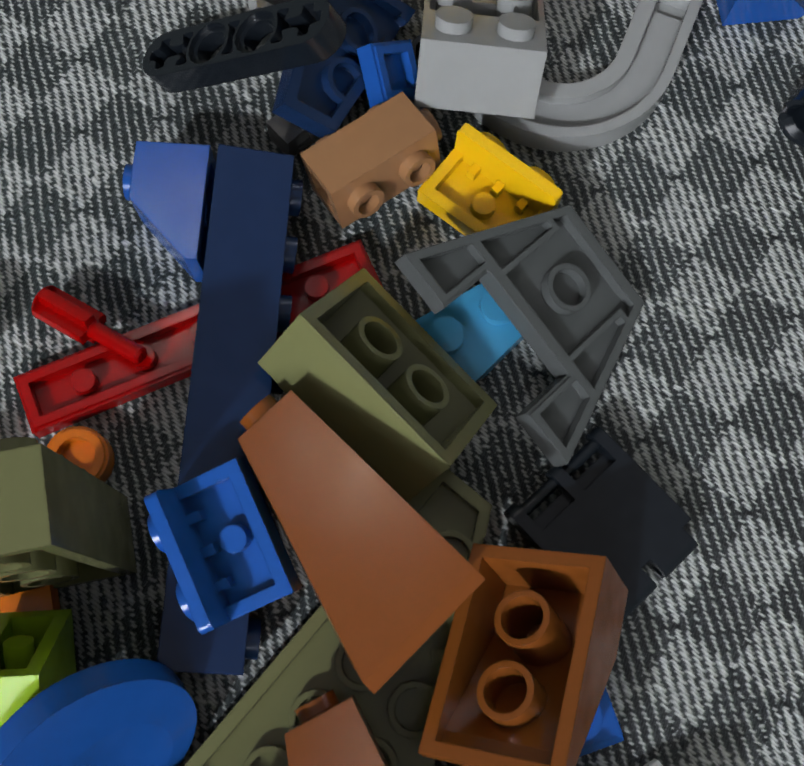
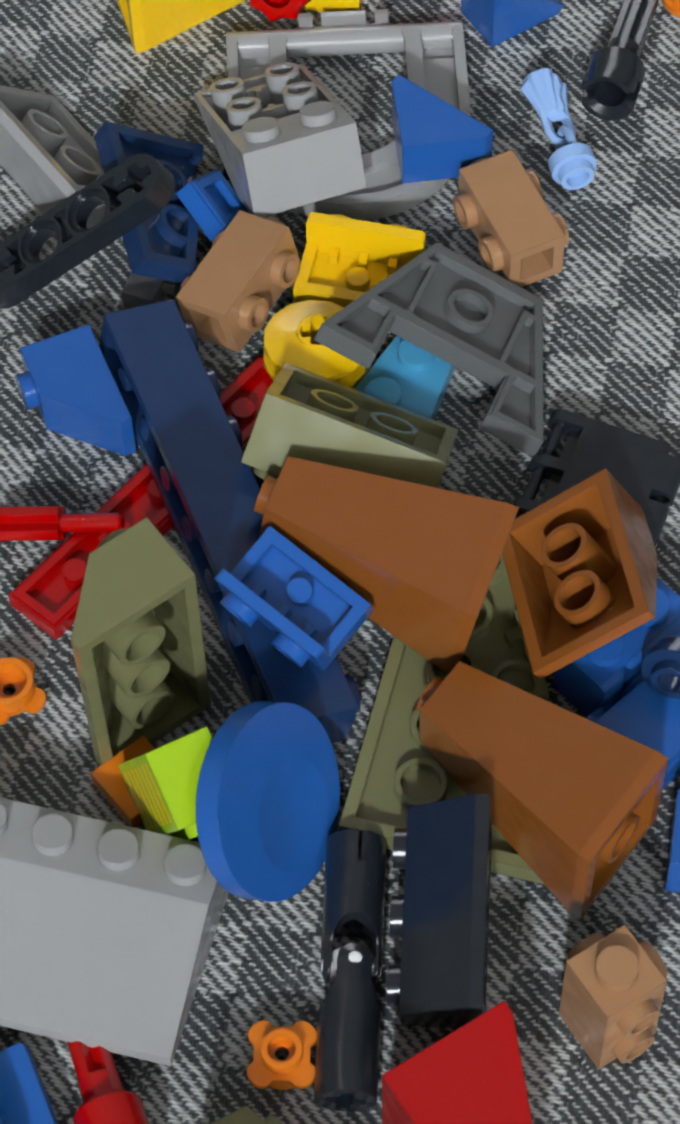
camera: 20 degrees left, 15 degrees down
(393, 235) = (291, 341): none -> yellow piece
(624, 95) = (433, 135): none -> blue slope
(653, 209) = (510, 219): none -> medium nougat brick
(743, 175) = (572, 161): none -> light blue piece

